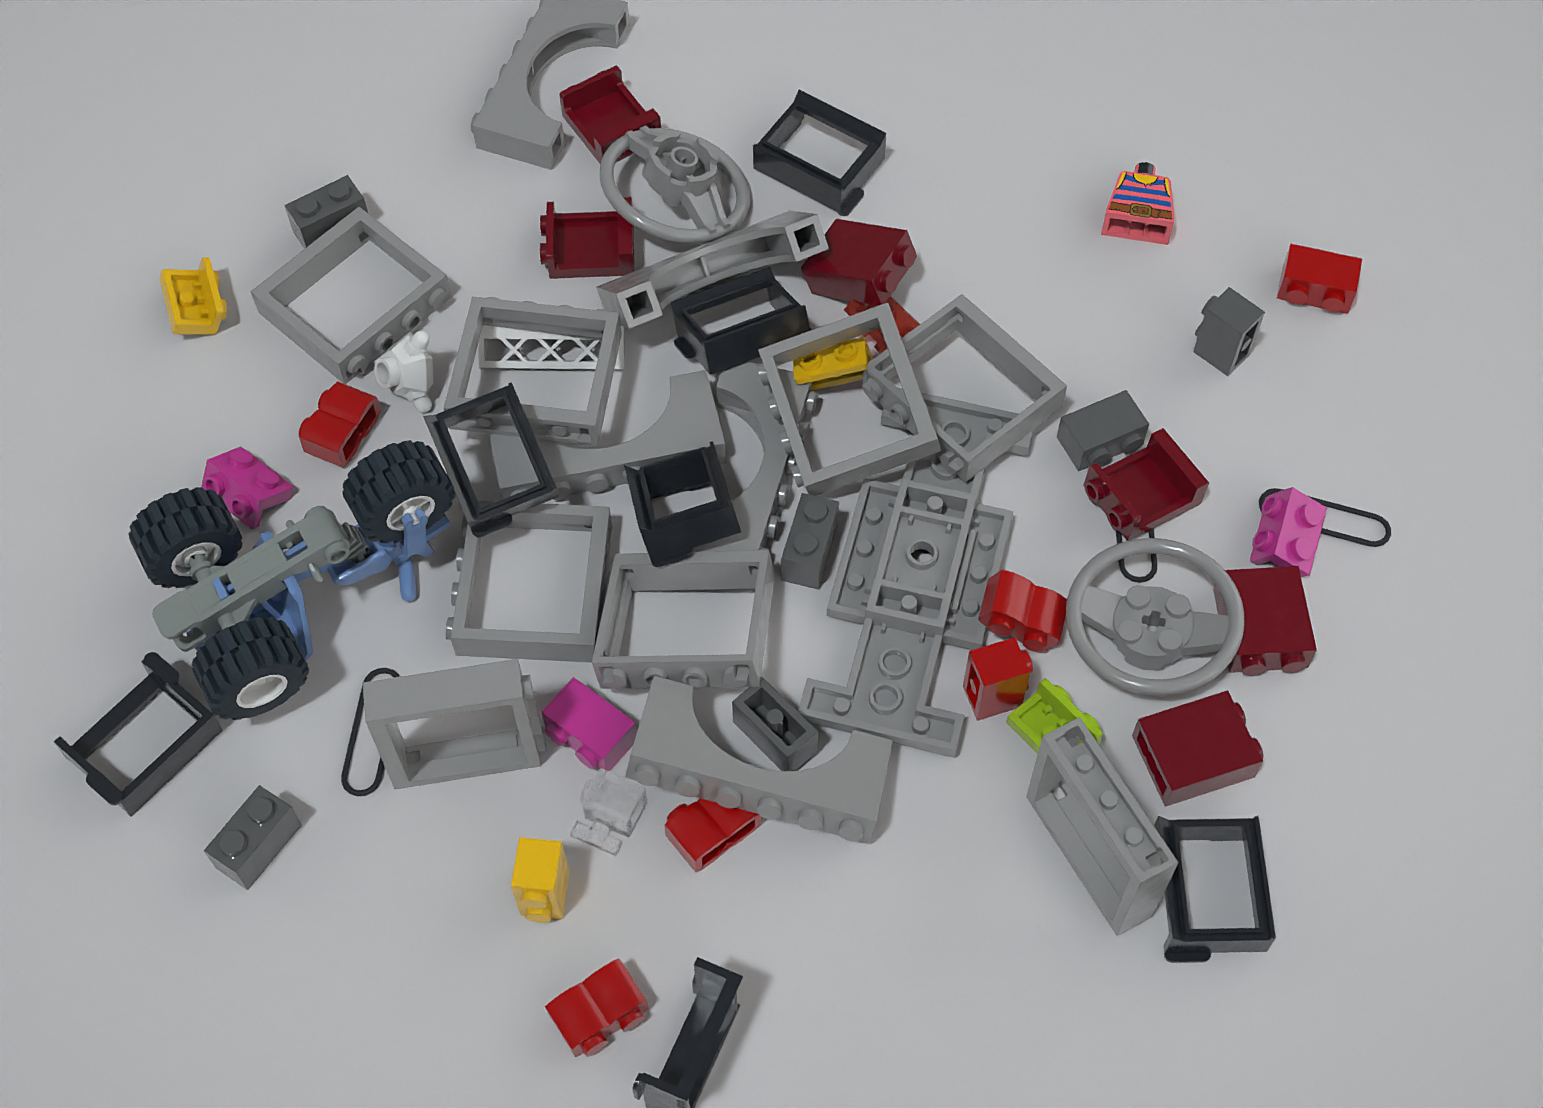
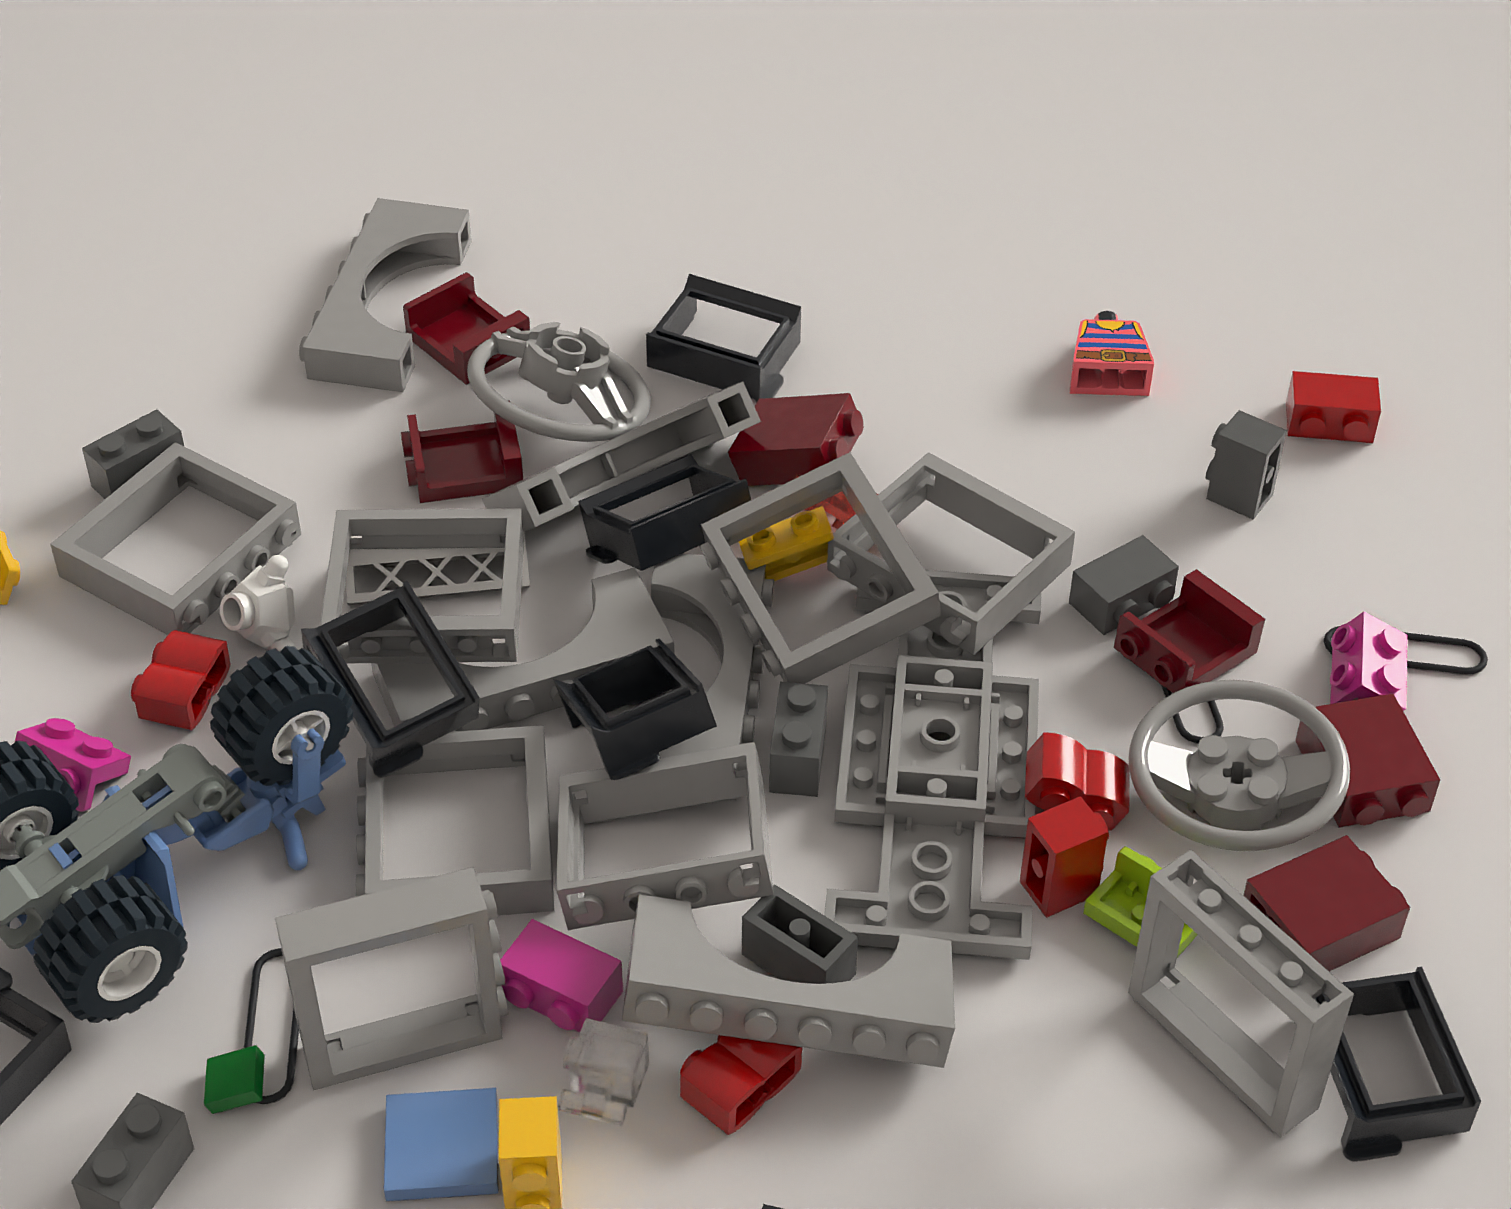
camera: 10 degrees left, 15 degrees down
(336, 775) = (234, 1079): none -> green tile
(478, 848) = (441, 1144): none -> medium blue tile

